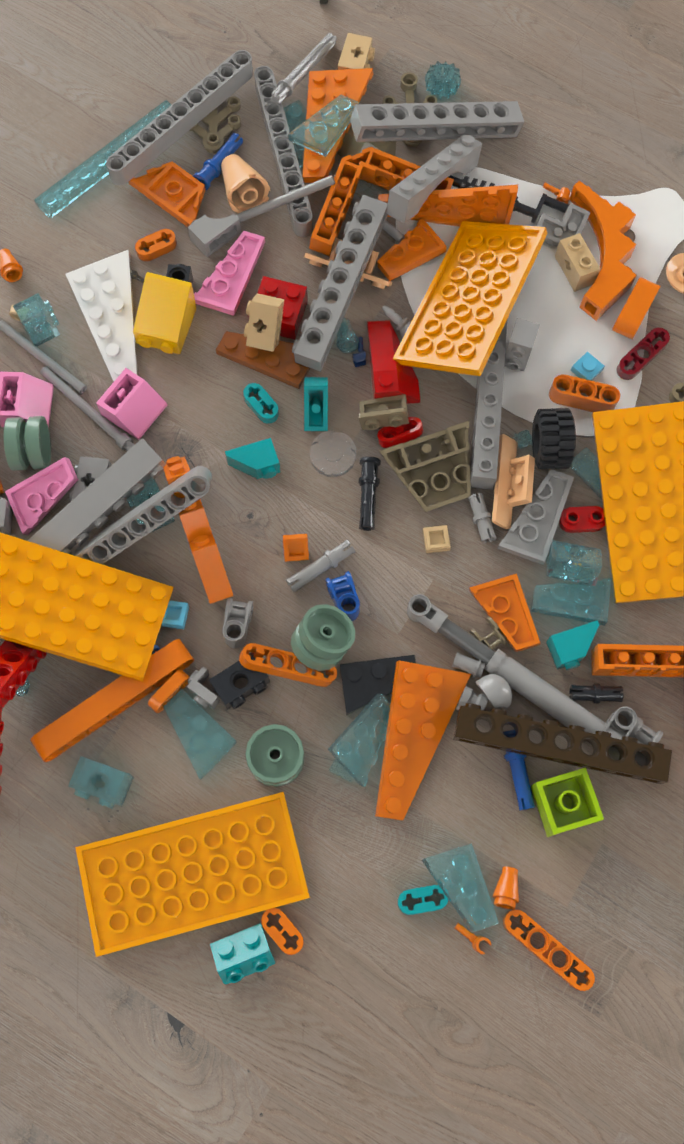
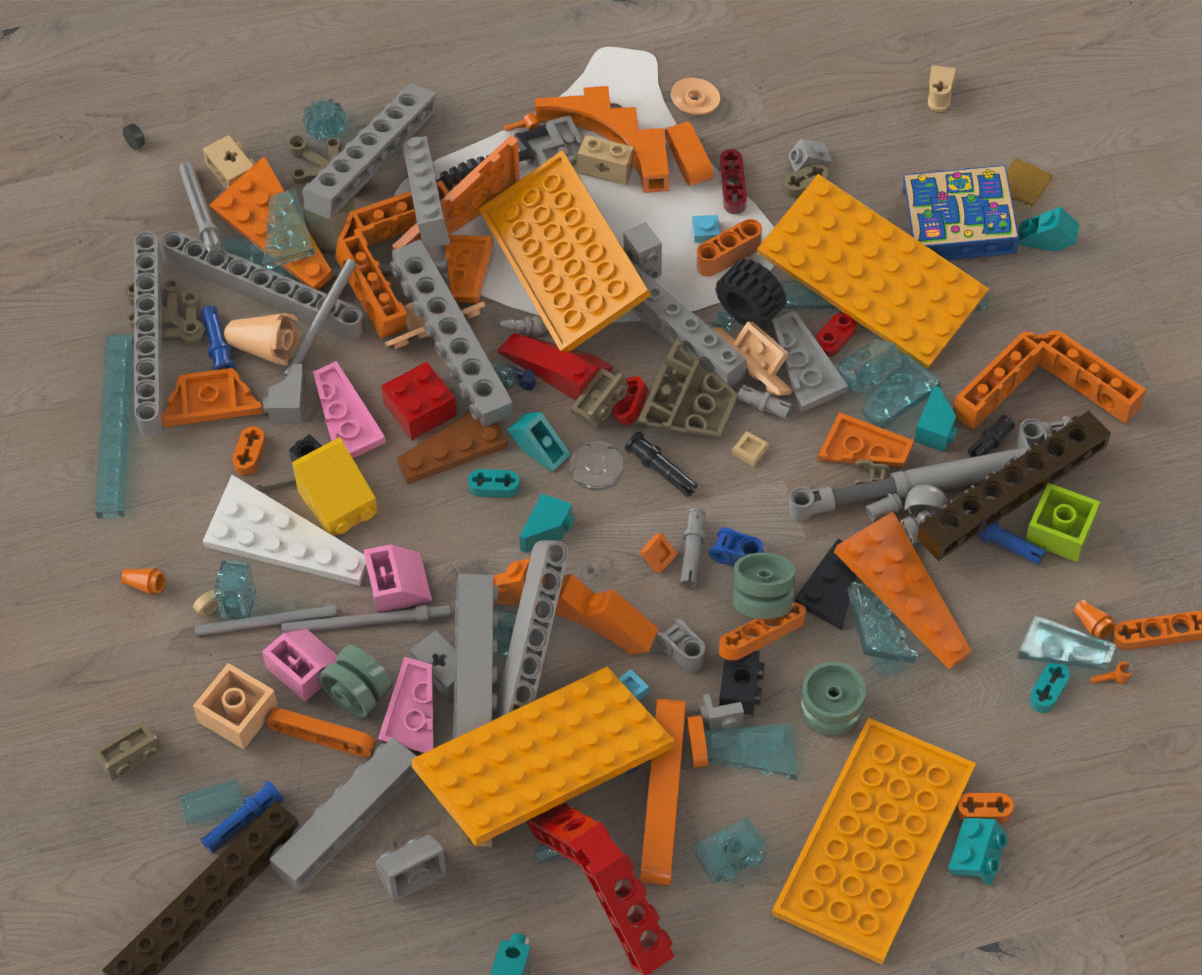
camera: 45 degrees left, 15 degrees down
(264, 322) = (442, 423): tan brick -> none

